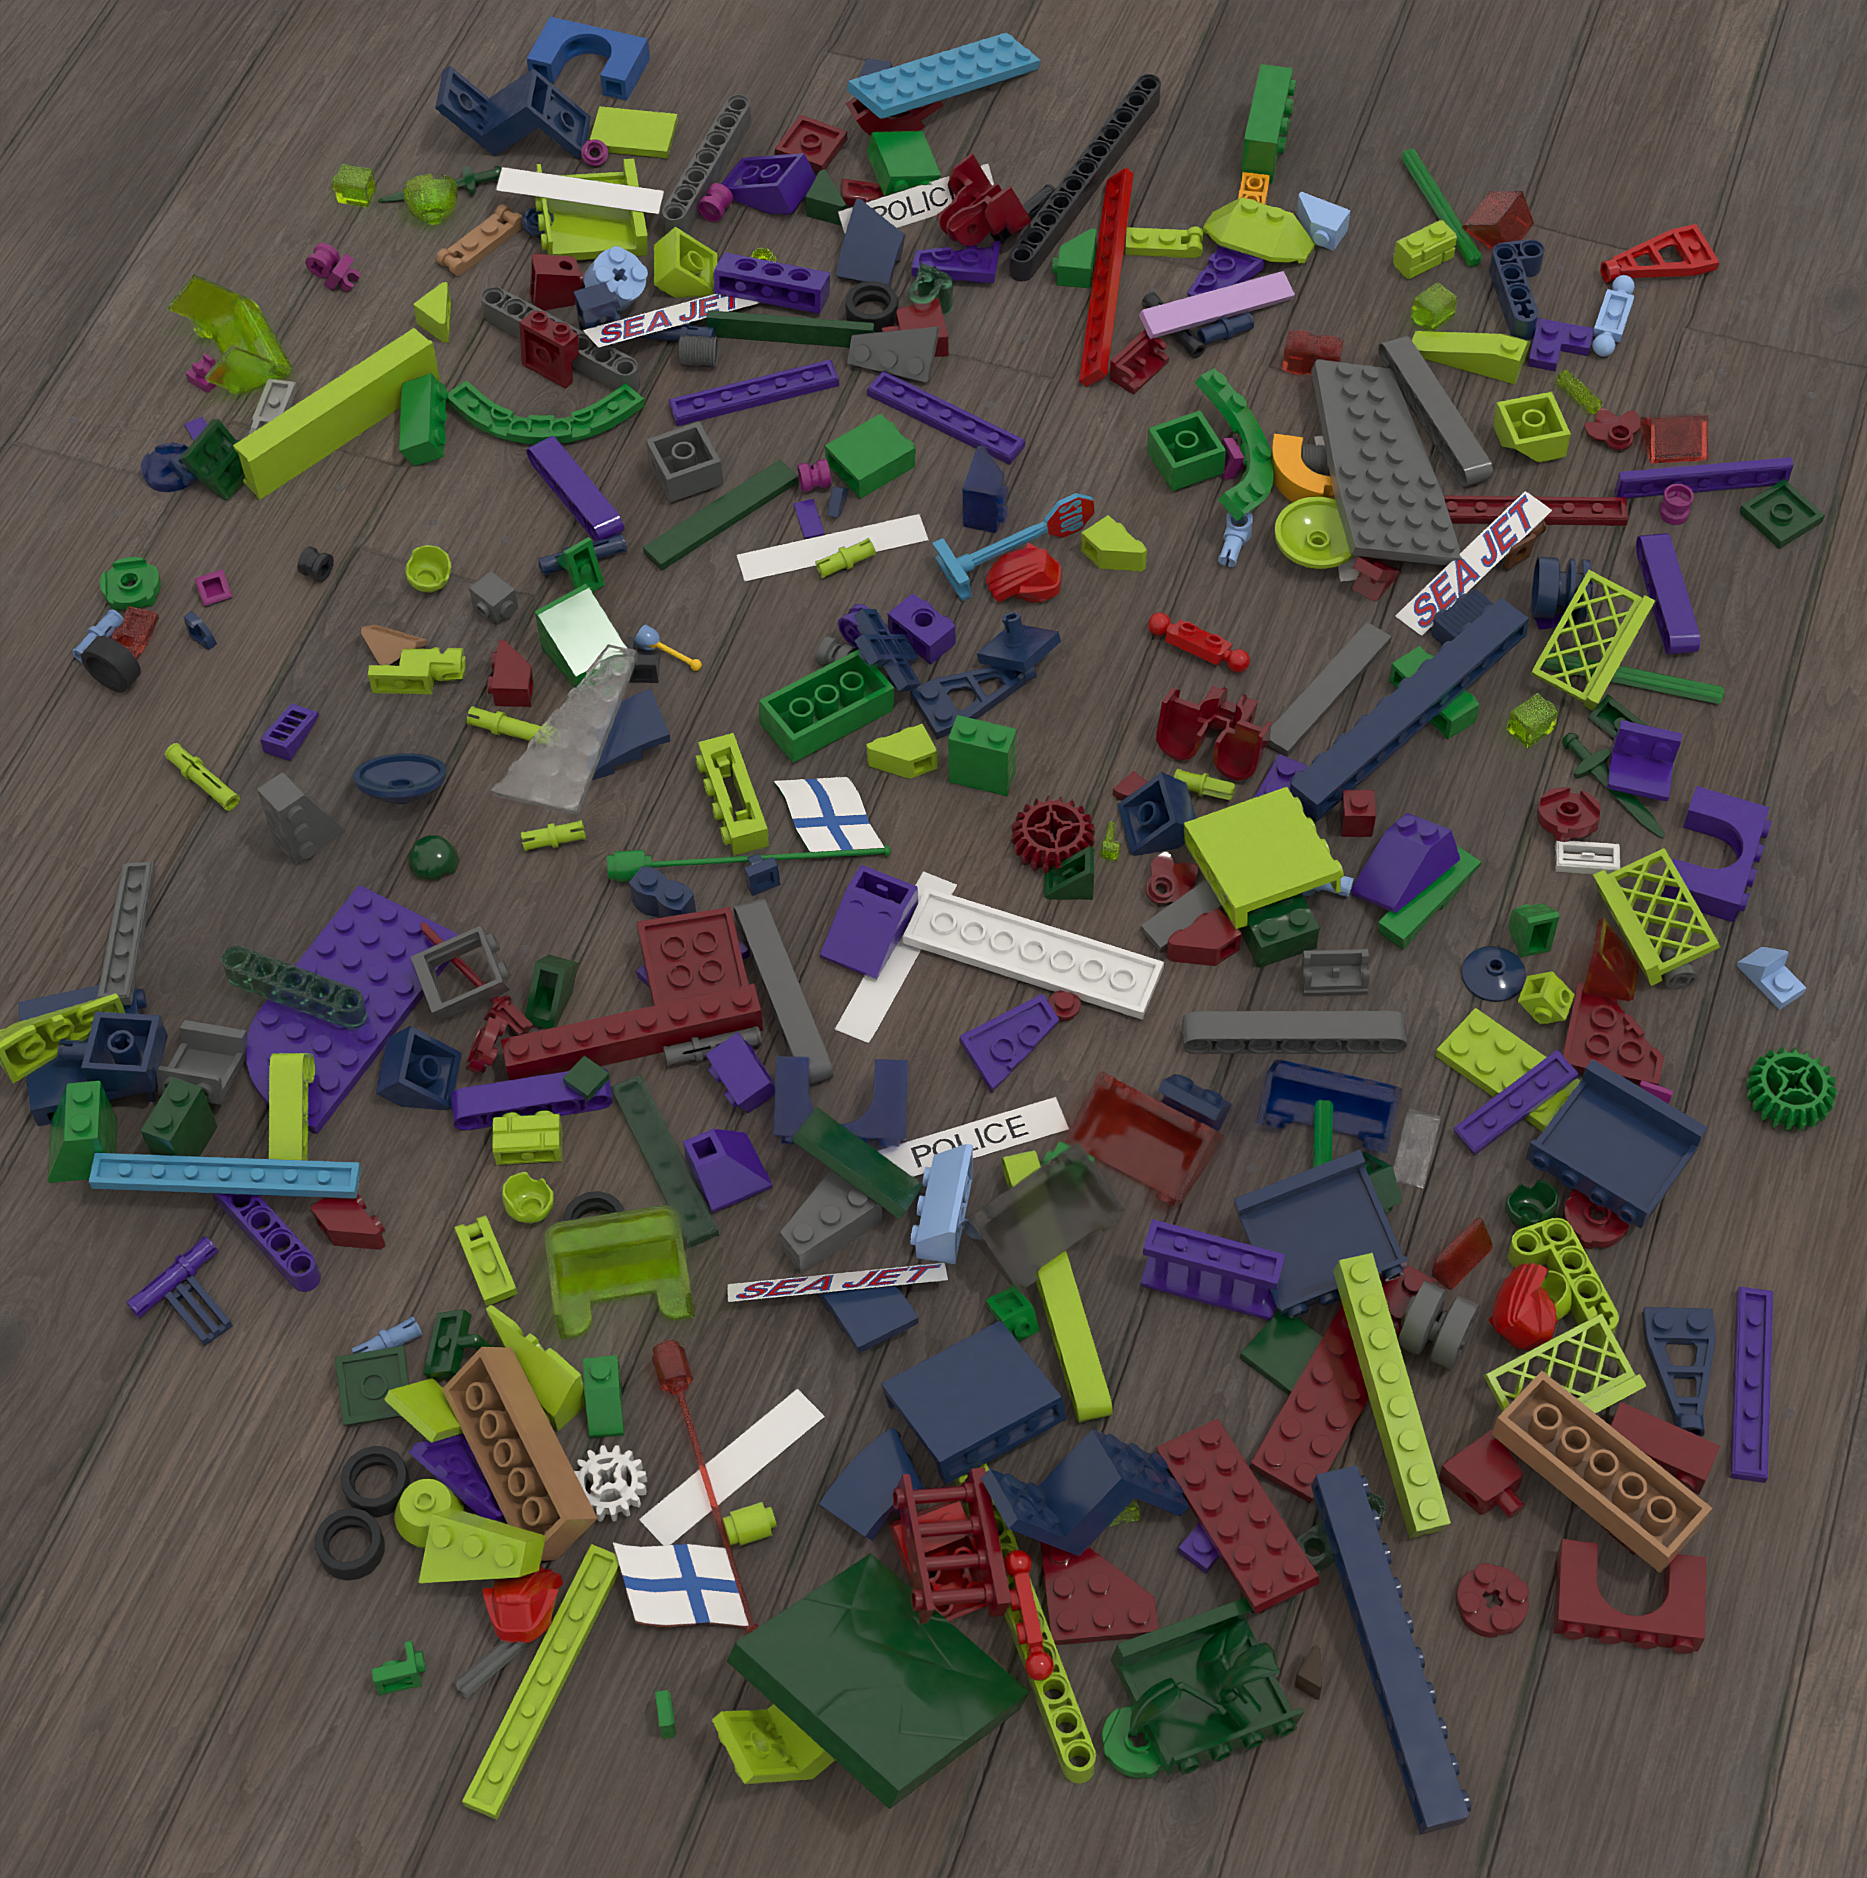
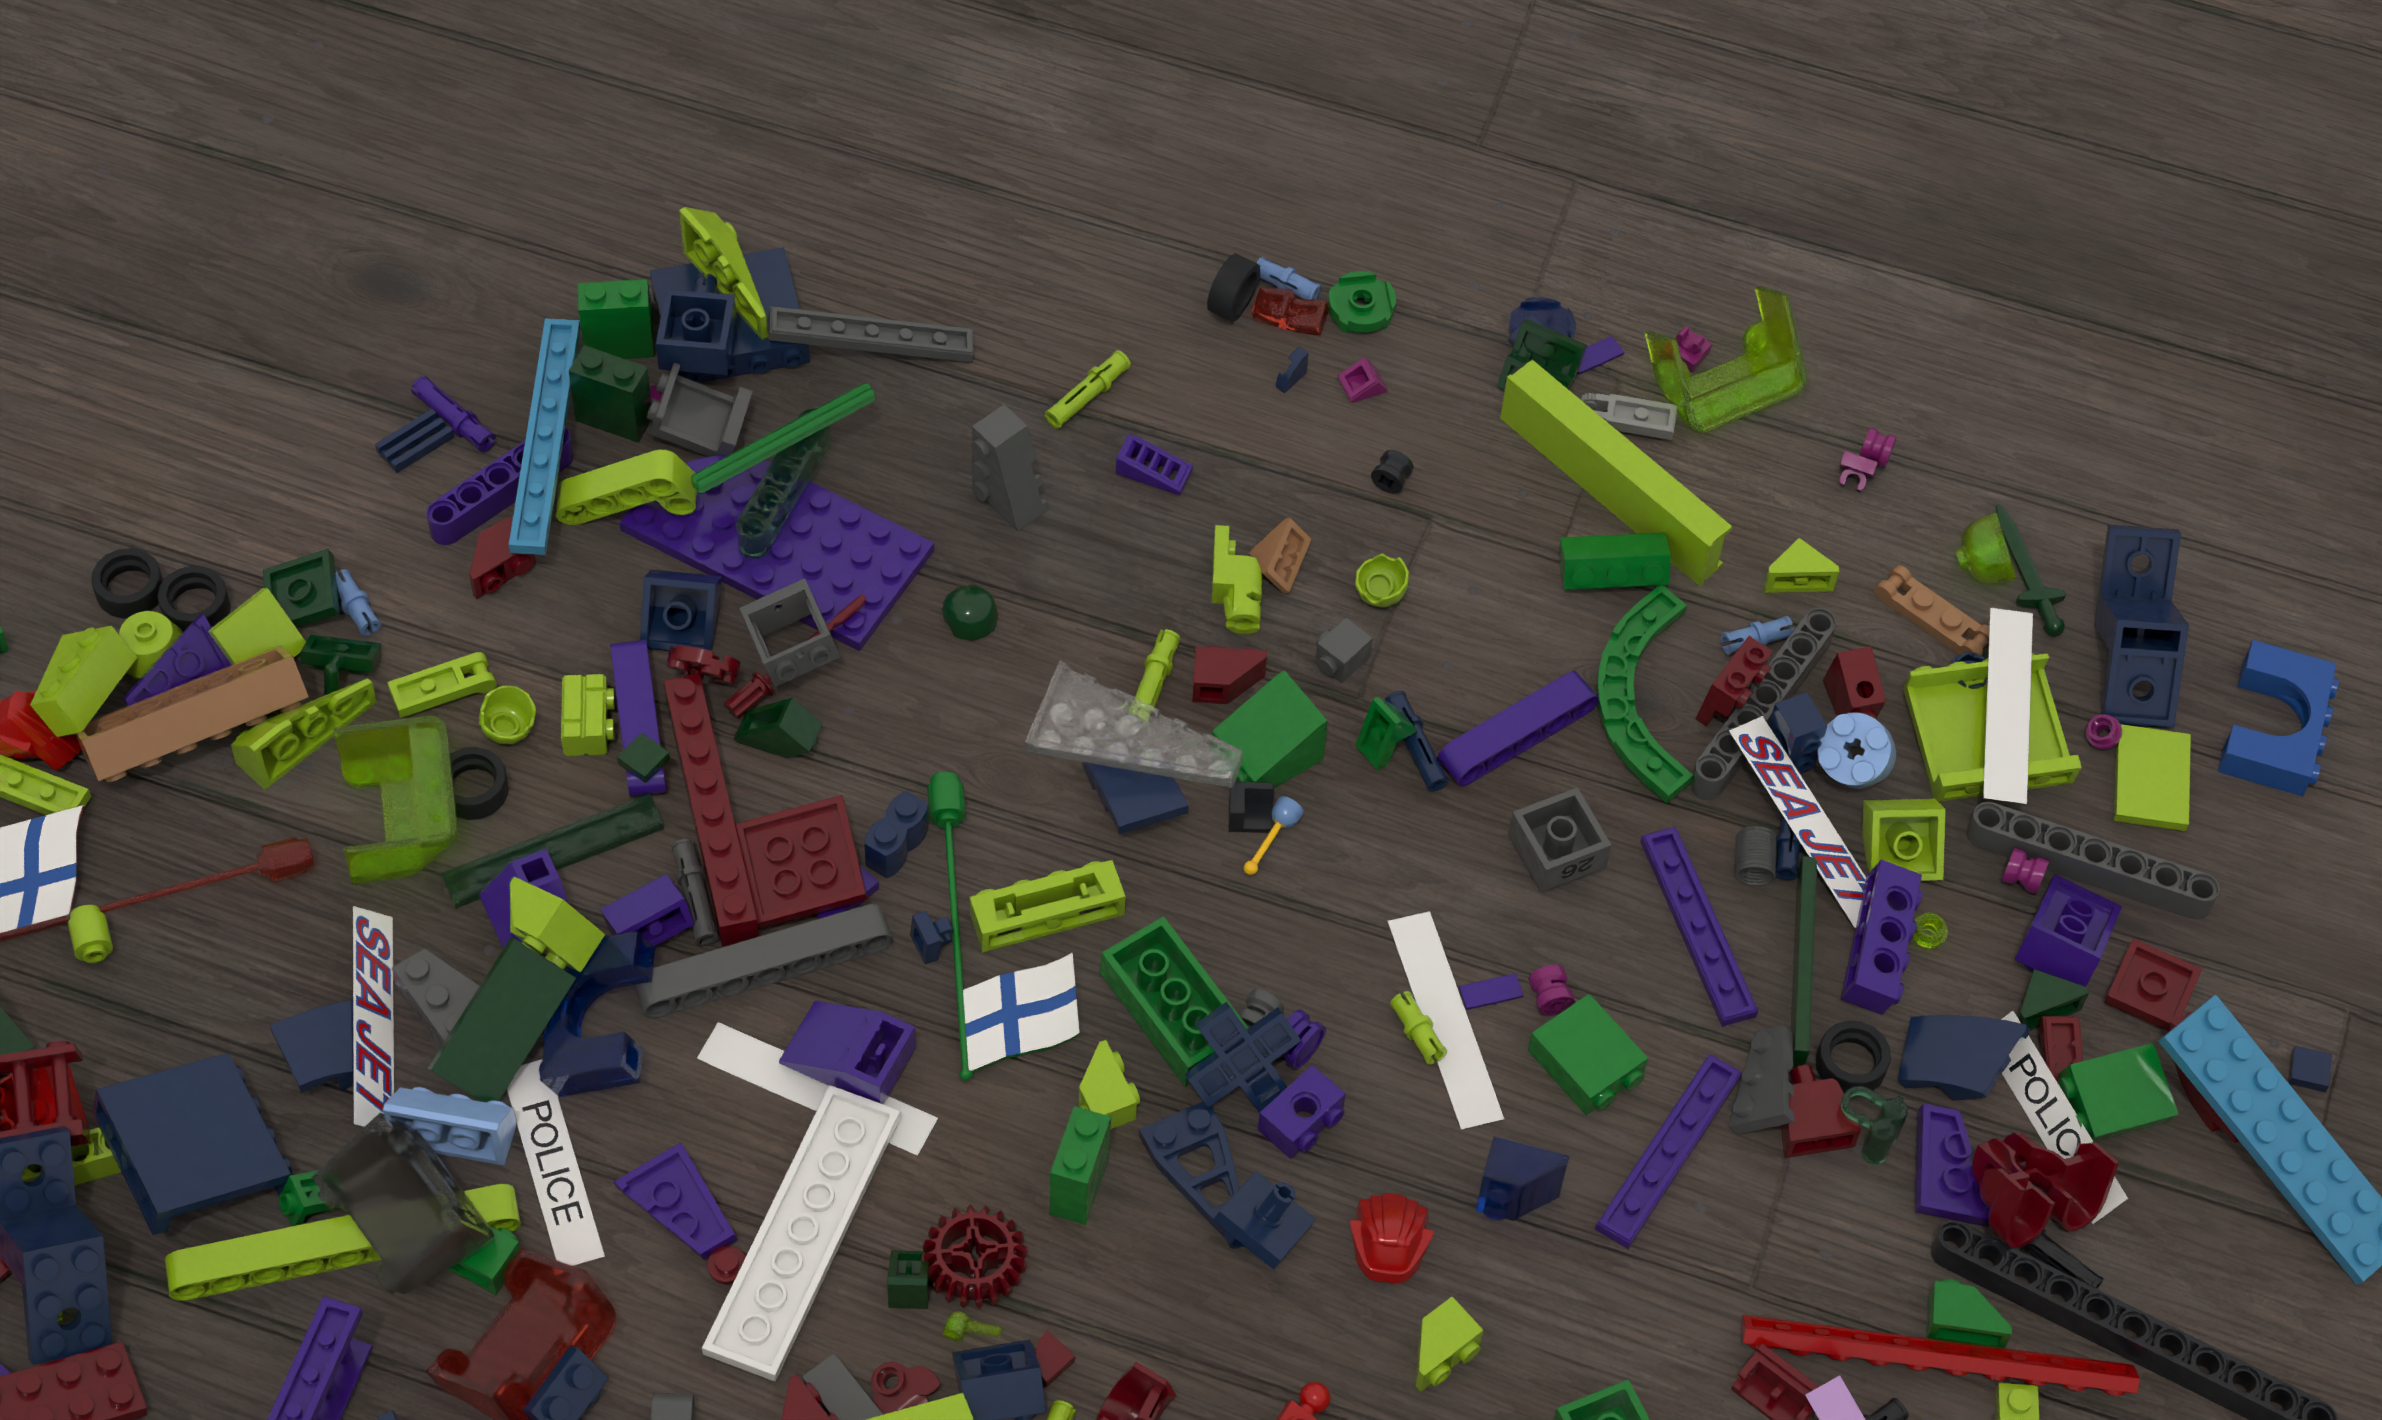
camera: 85 degrees right, 0 degrees up
(258, 975) = (782, 438): none -> green axle
(354, 185) = (2009, 473): clear neon green brick -> none
(400, 777) = (1072, 565): dark blue dish -> none
(495, 343) = (1762, 632): none -> medium blue pin
(553, 835) = (995, 726): lime pin -> none
(603, 1396) = (261, 796): green slope -> none
(608, 1468) = (157, 804): white gear -> none
(720, 514) = (1489, 889): dark green tile -> none
(732, 1467) = (171, 927): white sticker -> none
(771, 1124) = (551, 926): none -> lime slope
(837, 501) = (1514, 1019): dark blue tile -> none
(866, 1485) = (112, 1048): dark blue slope -> none
(1062, 520) = (1402, 1151): dark azure piece -> none

